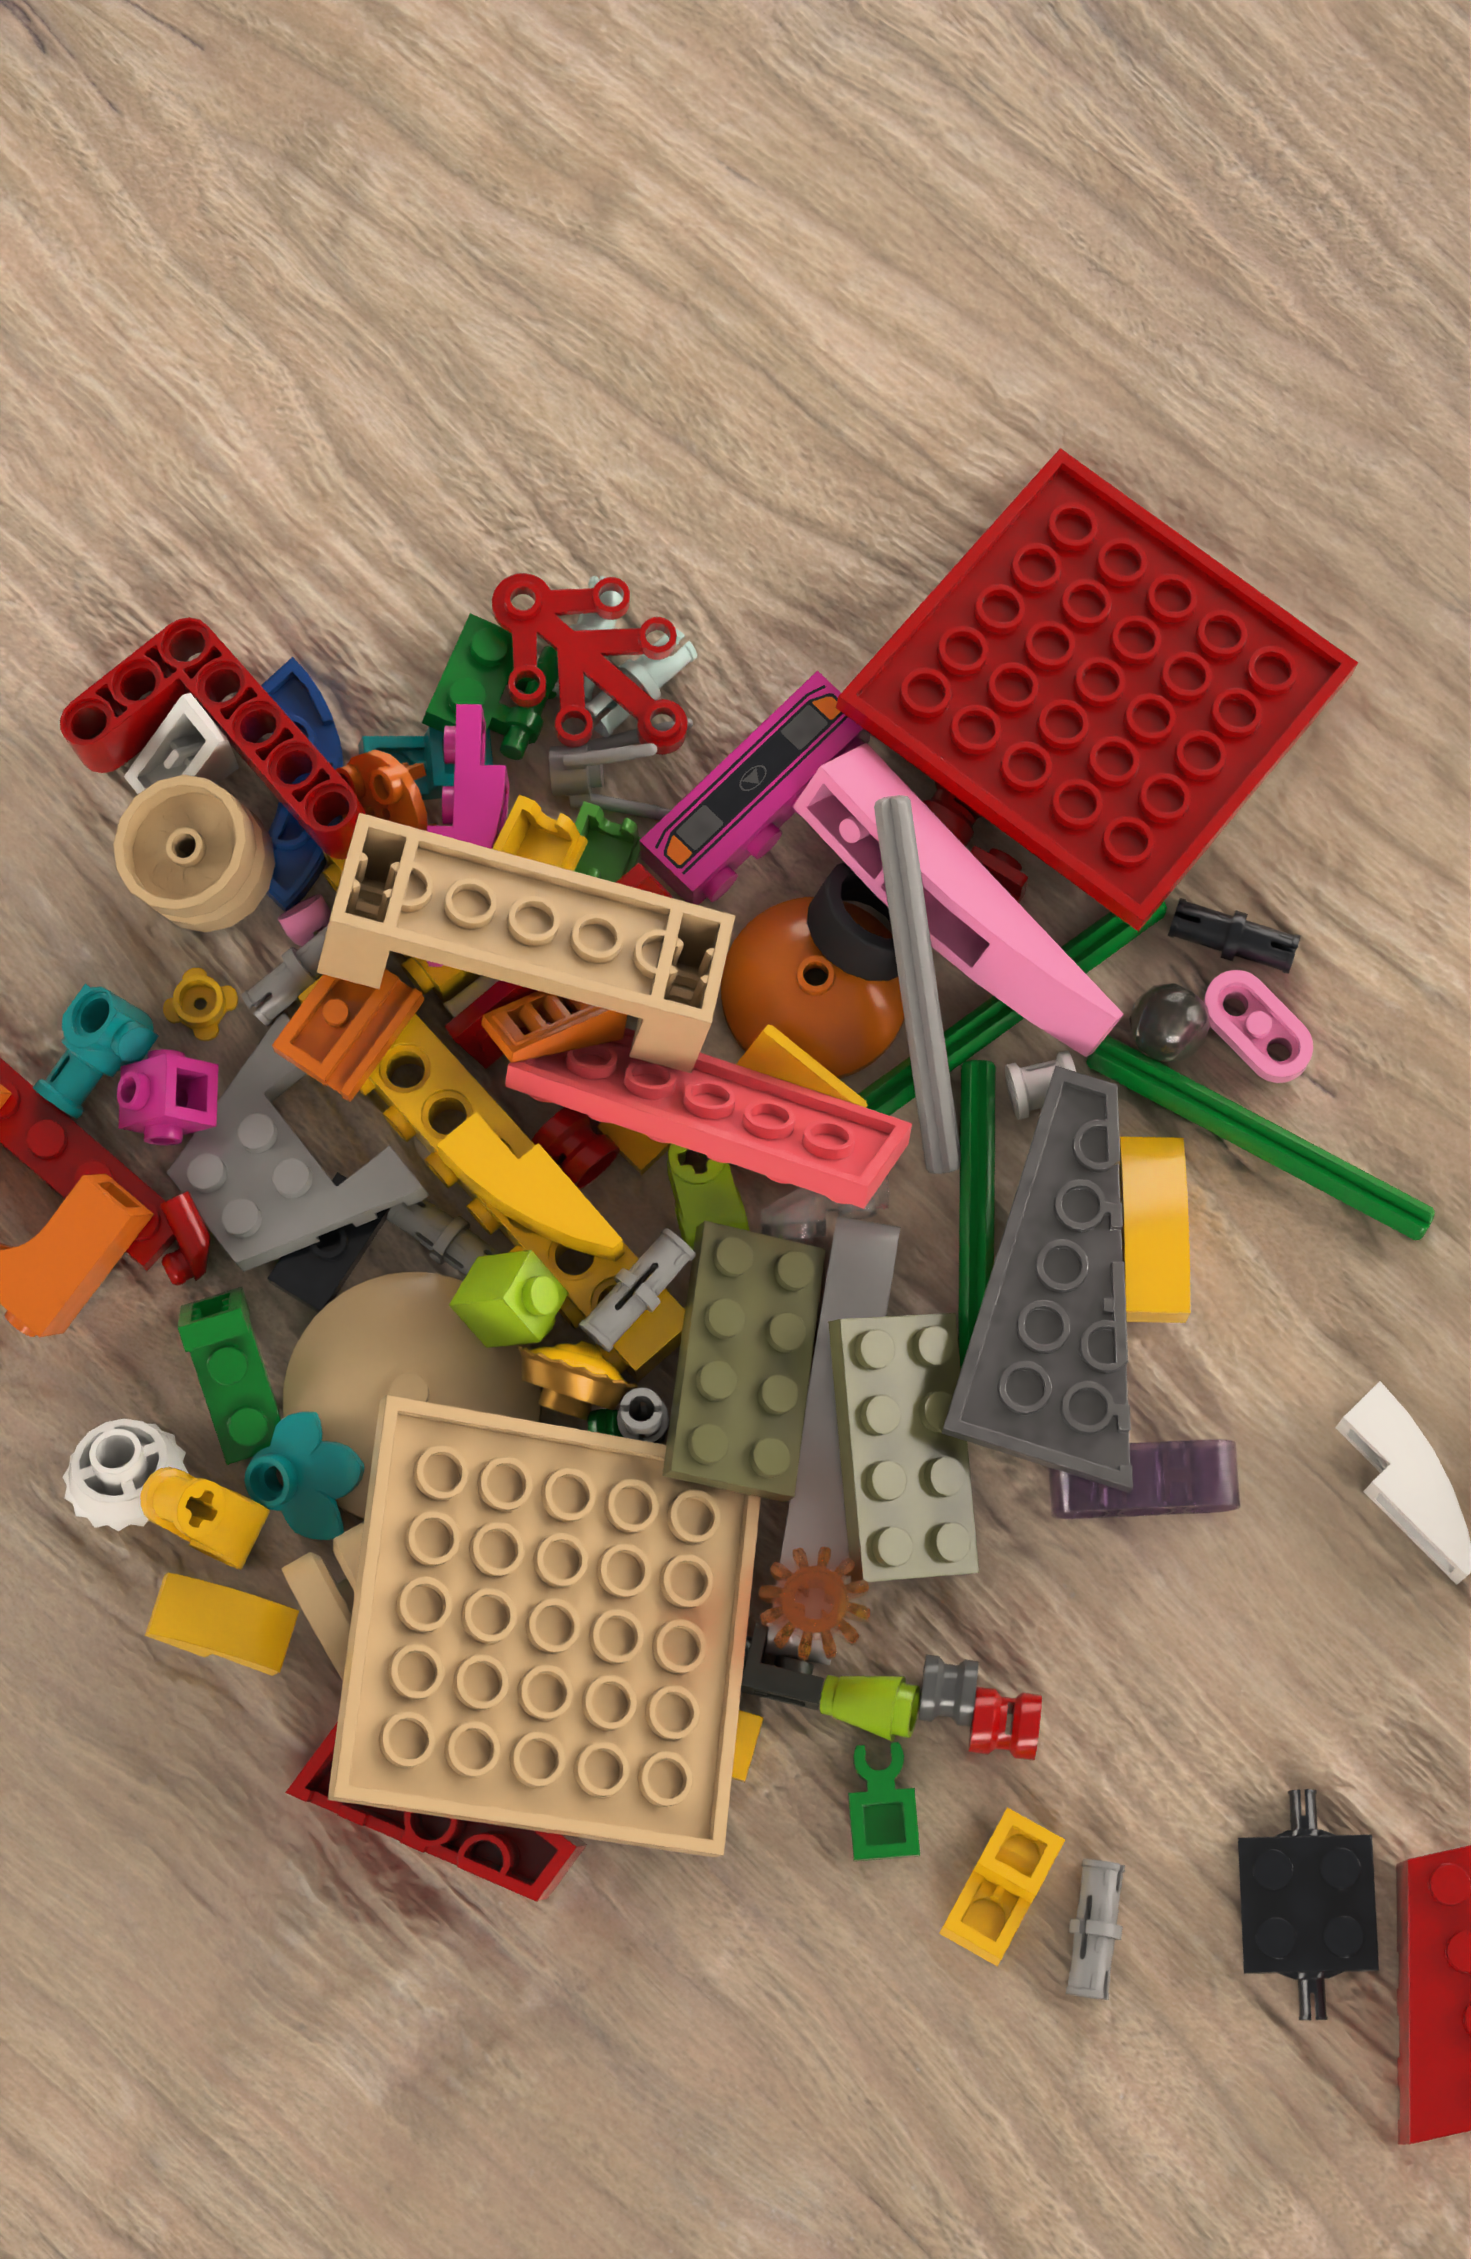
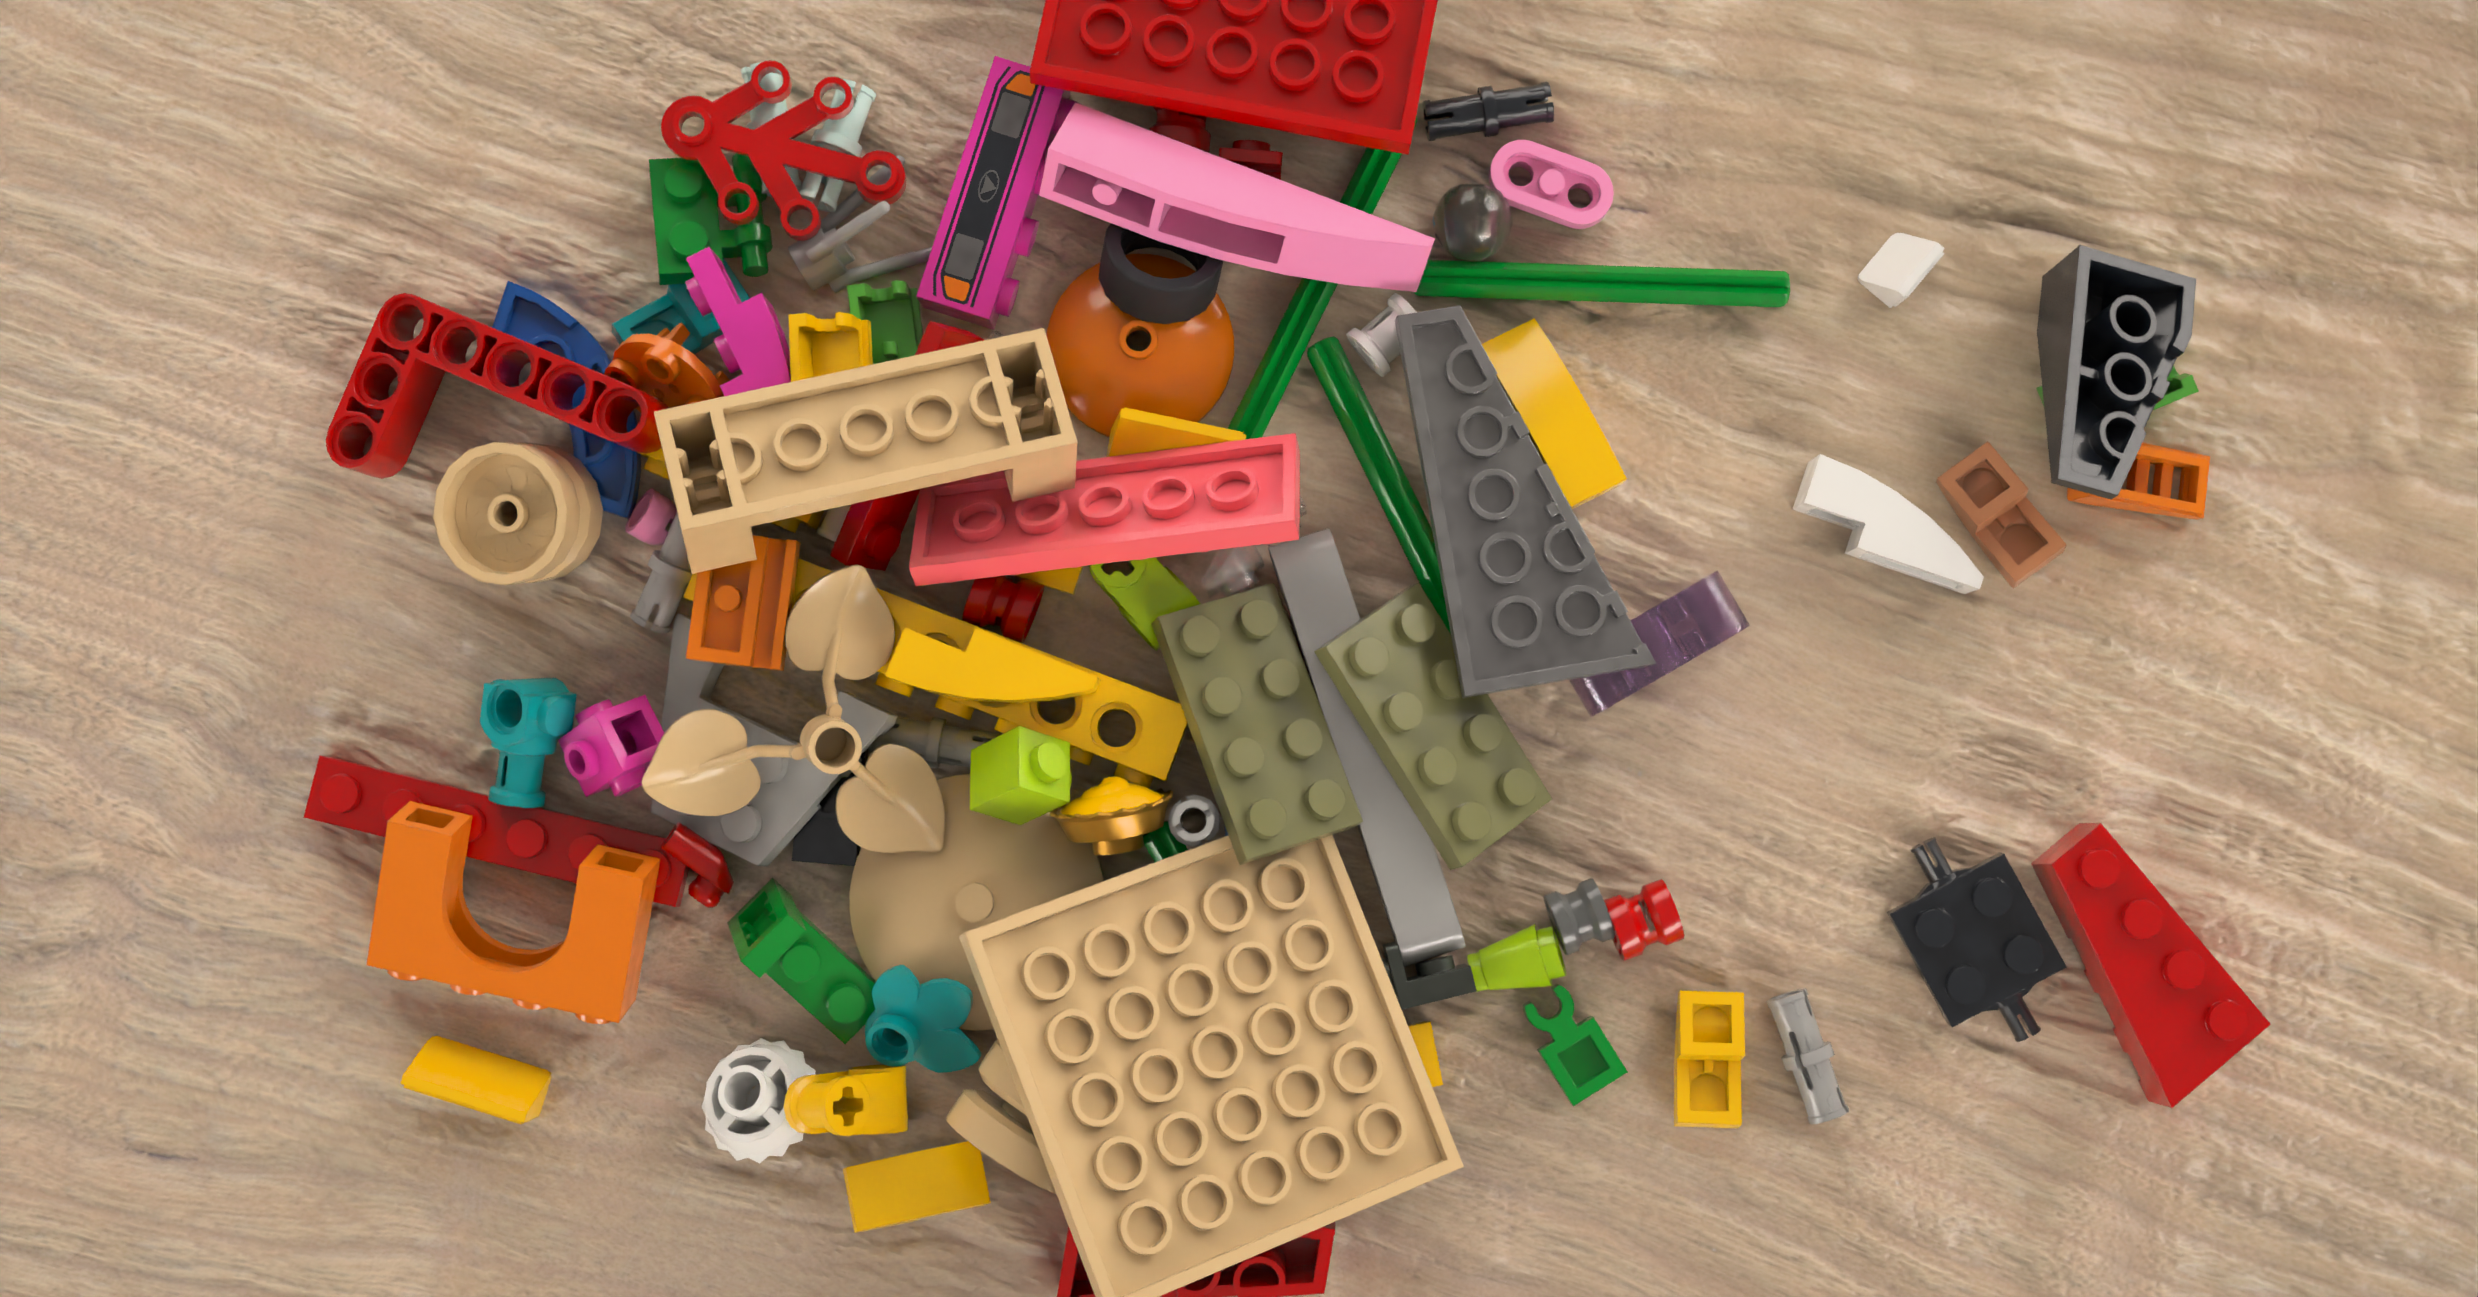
camera: 30 degrees left, 10 degrees up
(183, 745) = (456, 420): white slope -> none
(197, 986) = (581, 651): yellow plate -> none
(389, 1262) = (890, 802): none -> tan plant
(571, 1026) = (943, 512): orange slope -> none
(664, 1262) = (1143, 666): light grey pin -> none
(835, 1593) = (1420, 927): clear orange gear -> none
(918, 983) = (1235, 301): light grey axle -> none

